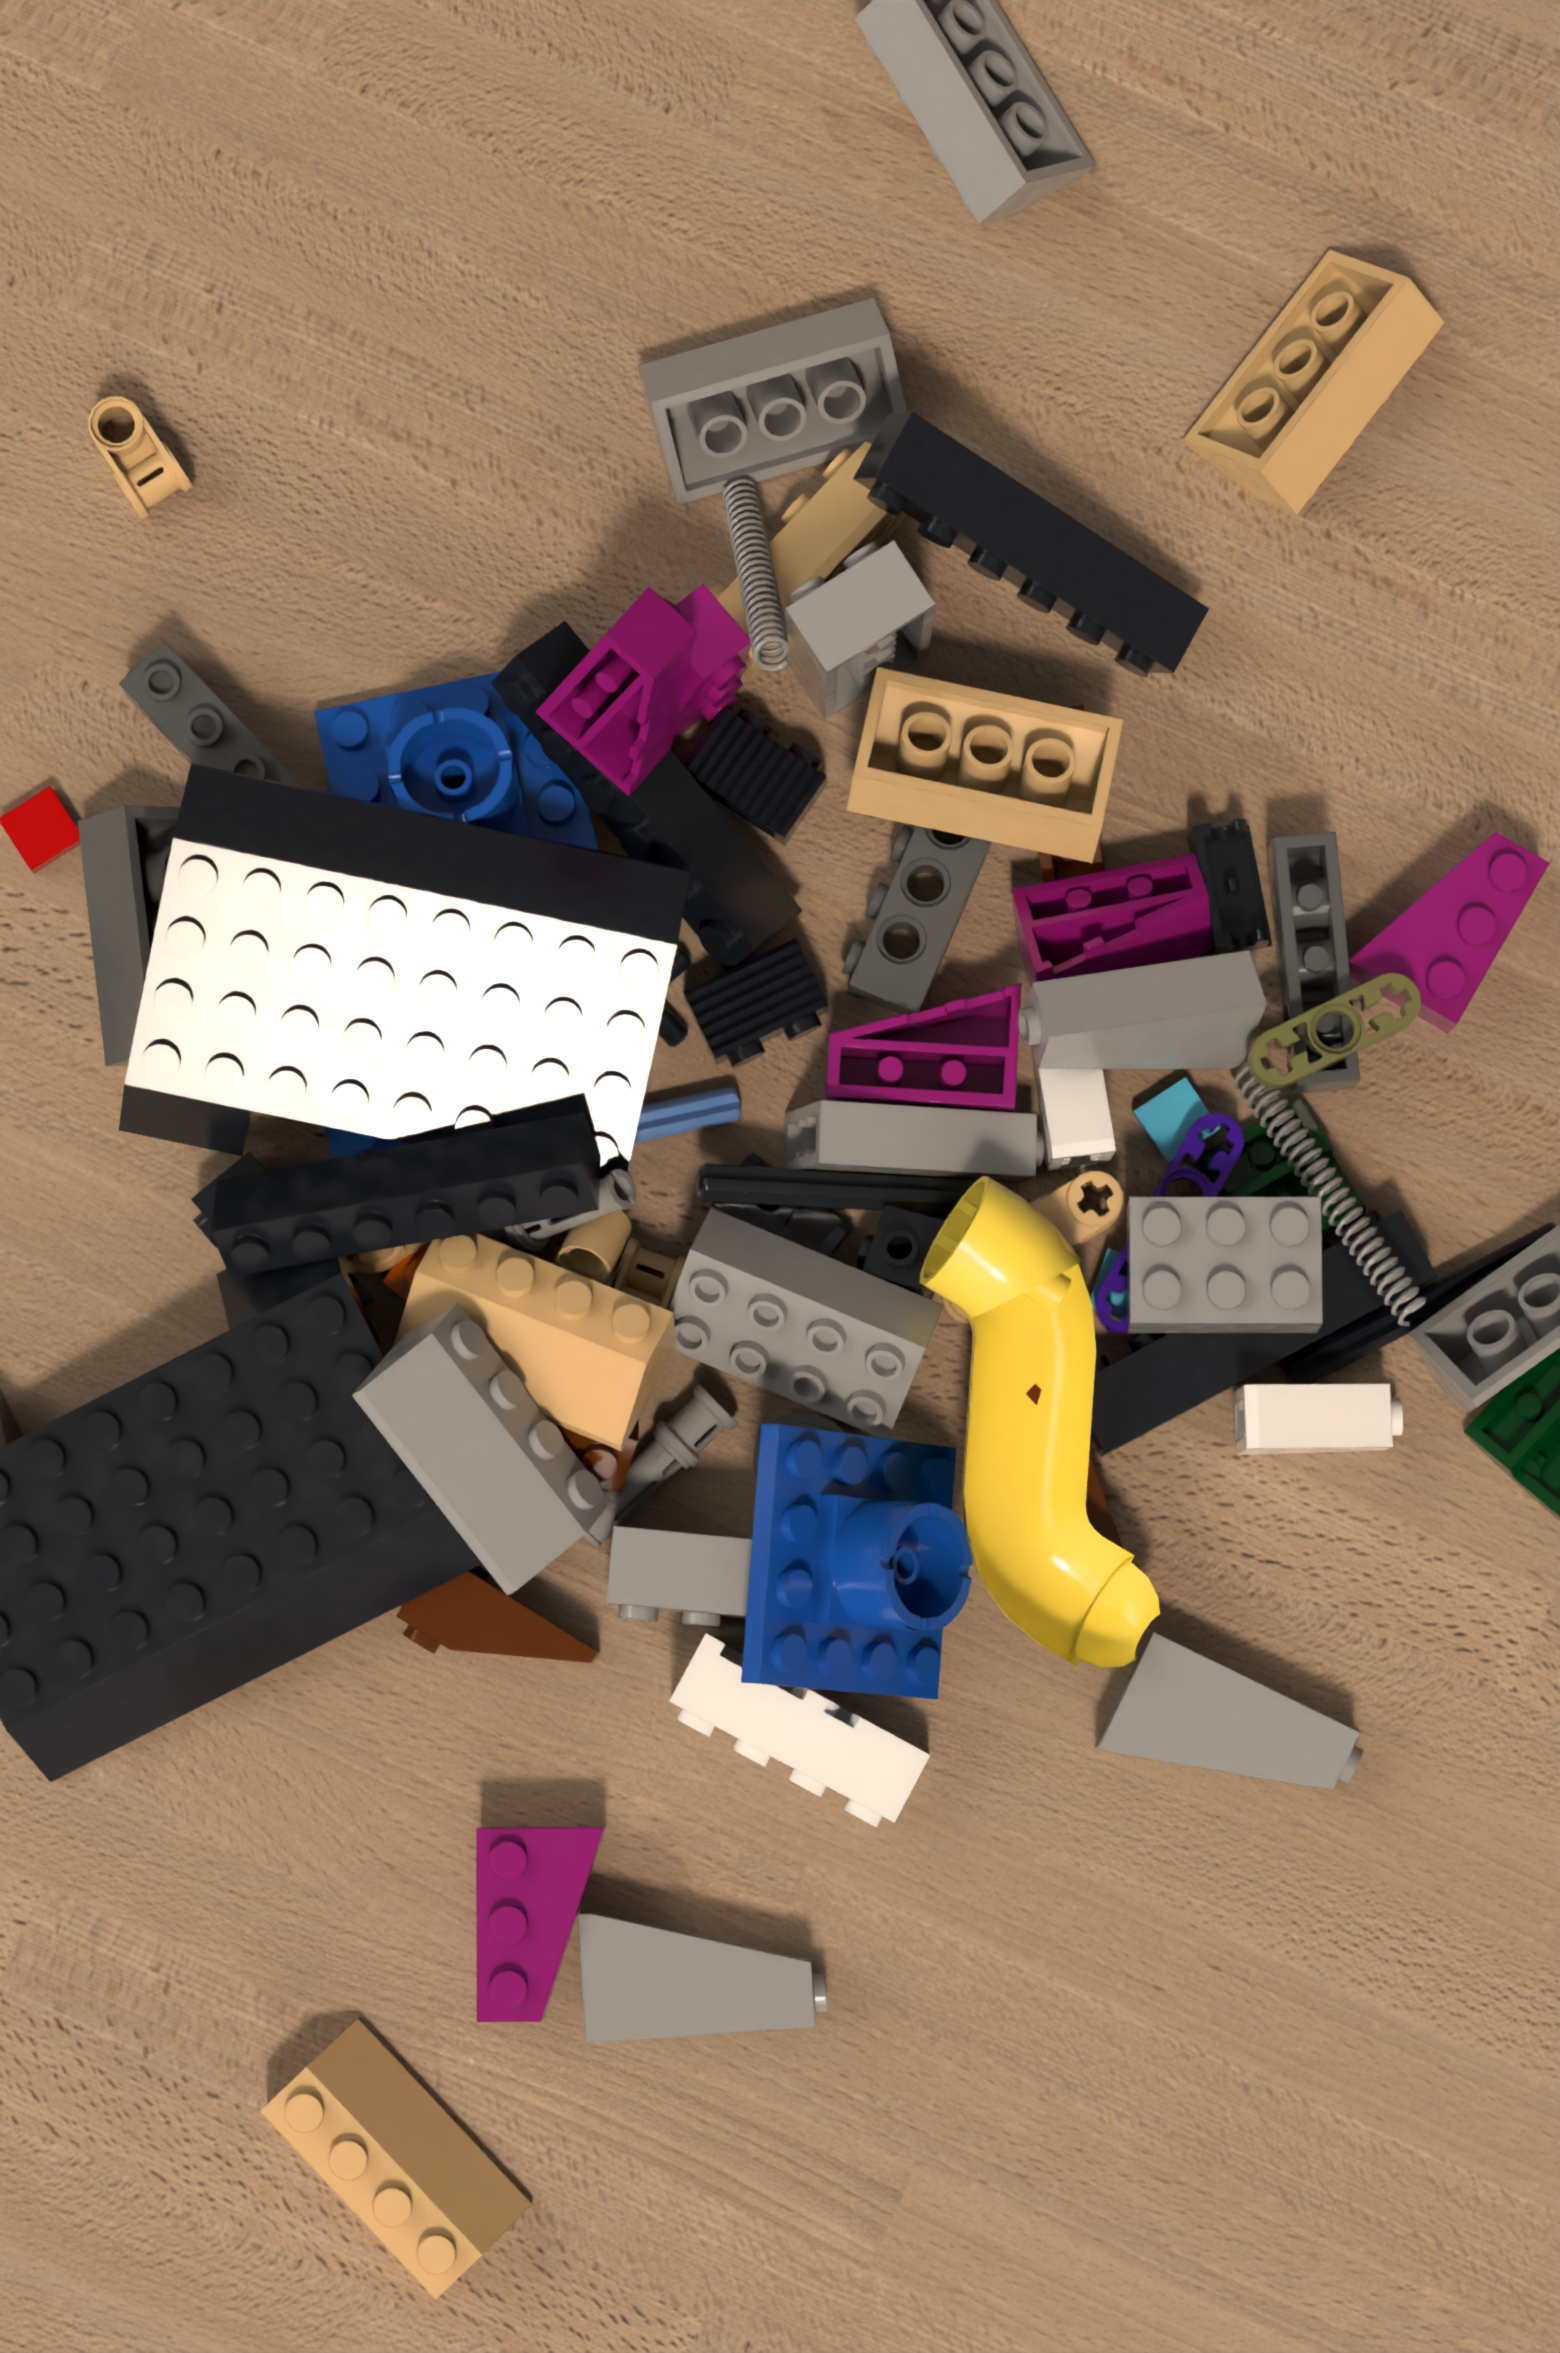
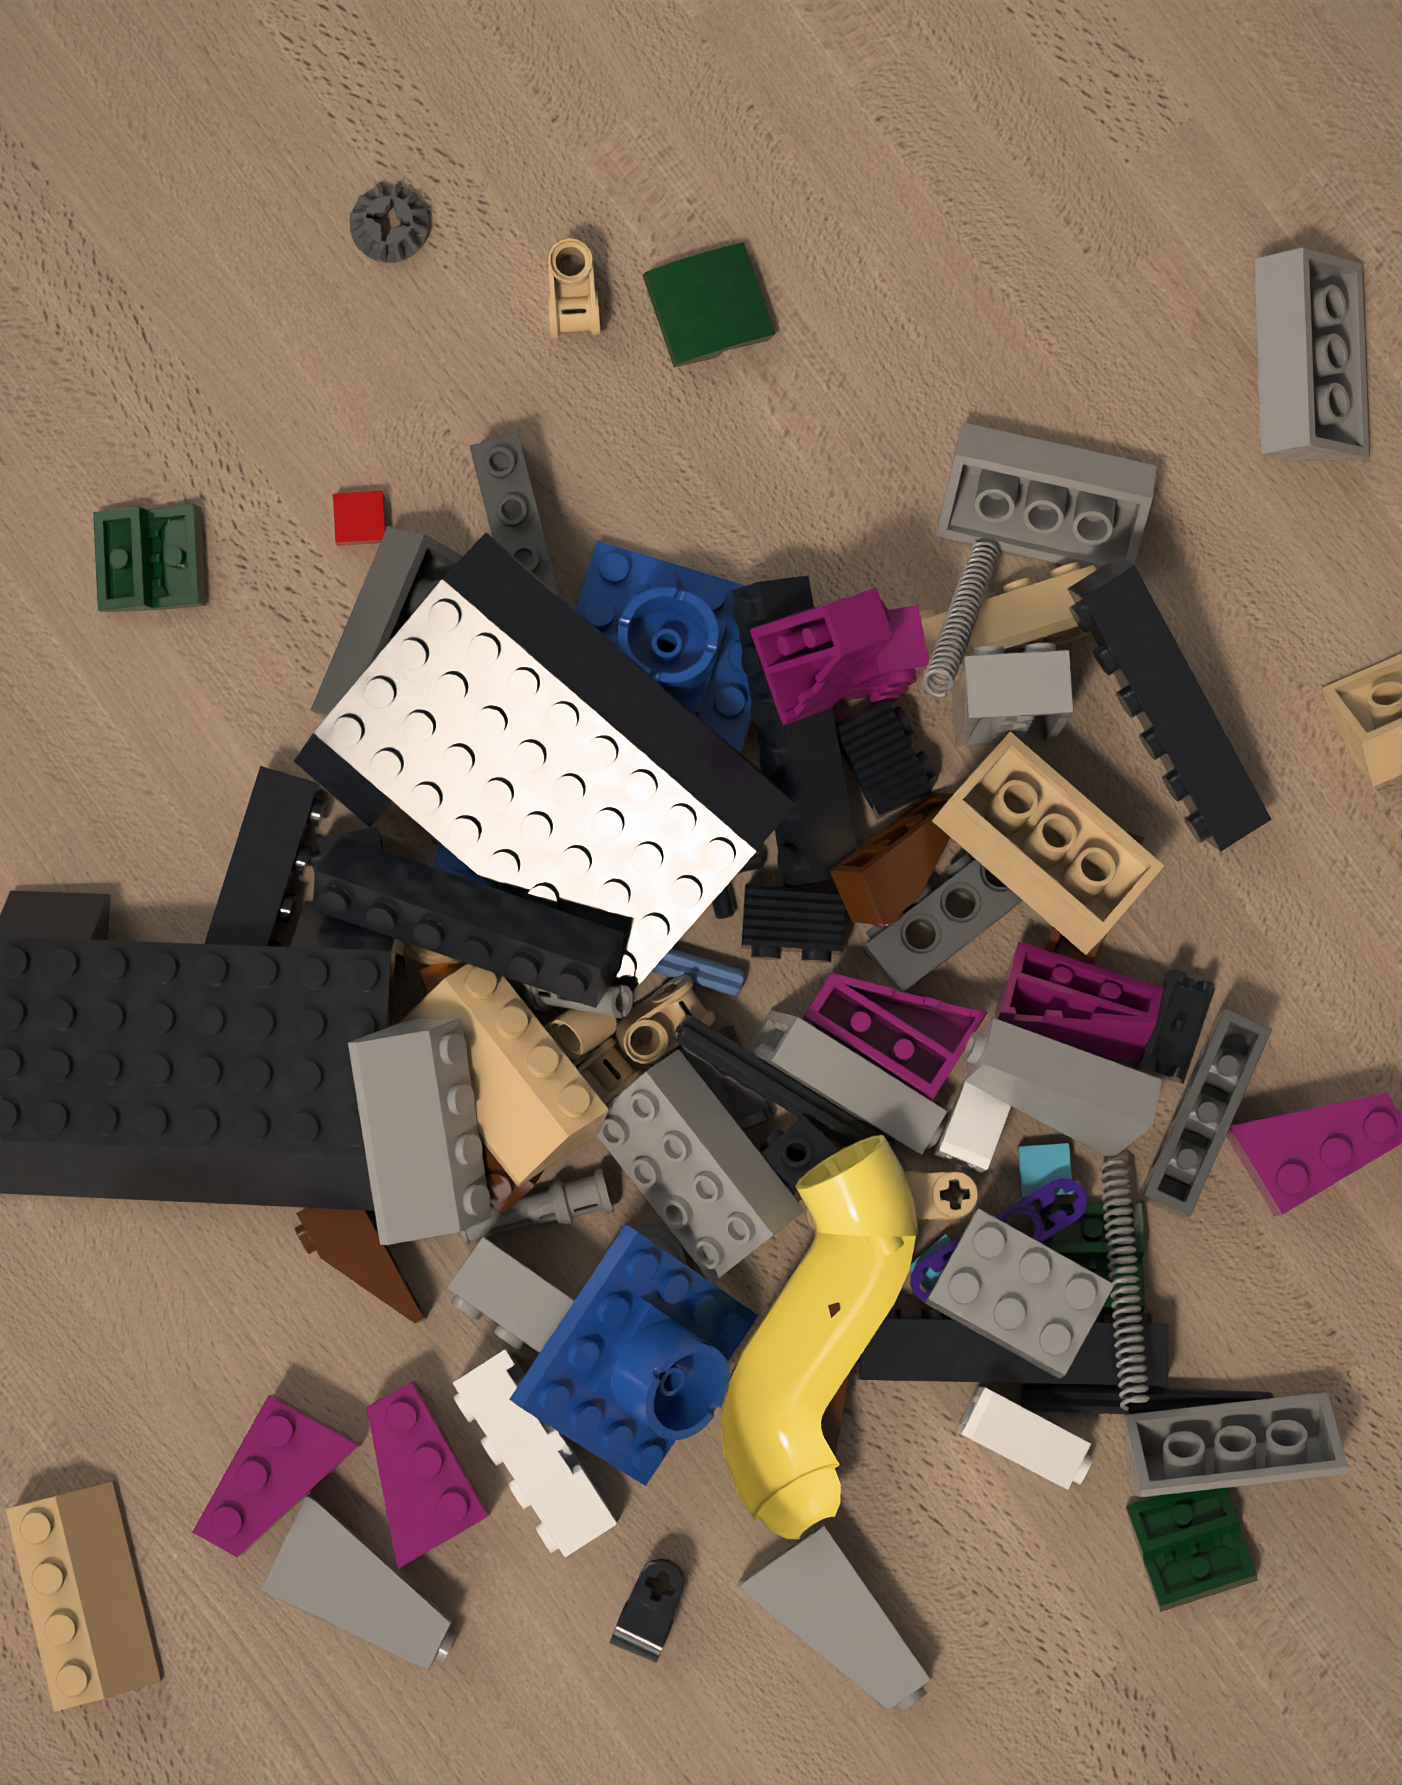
camera: 25 degrees right, 0 degrees up
(149, 1252) = (266, 860): none -> black brick
(292, 390) = (708, 304): none -> dark green slope
(673, 1181) = (662, 1014): none -> tan piece
(689, 1823) = (420, 1475): none -> magenta wedge
(831, 882) = (893, 865): none -> reddish brown slope
(1018, 1839) = (648, 1617): none -> black piece
(1369, 996) = (1230, 1160): olive beam -> none

